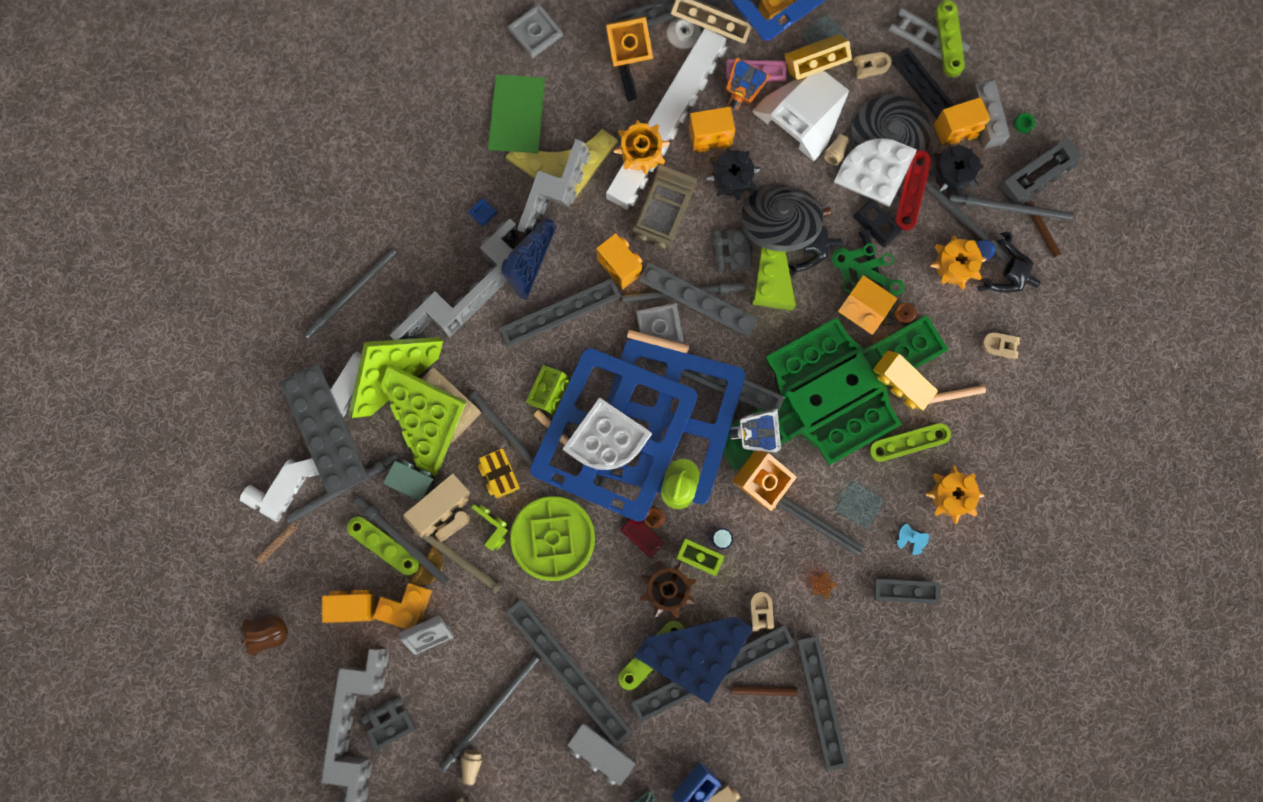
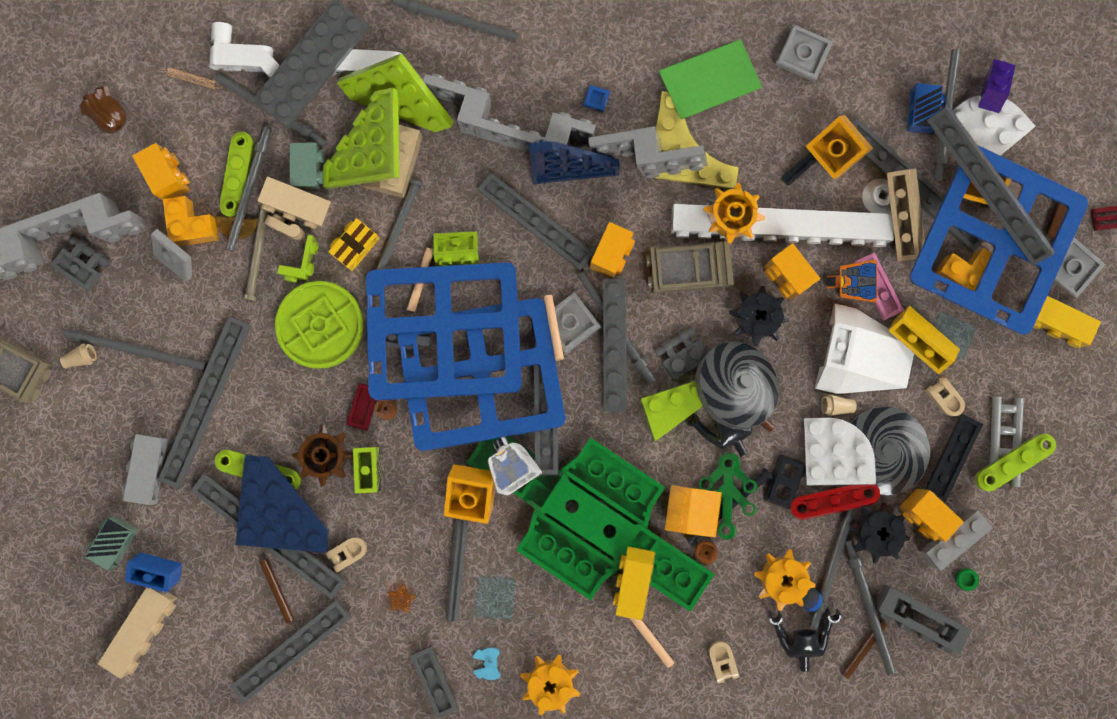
camera: 65 degrees right, 5 degrees up
(606, 438) = (432, 325): white plate -> none
(680, 484) = (424, 416): lime piece -> none
(722, 538) = (398, 482): light aqua tile -> none
(910, 442) = (579, 617): lime plate -> none

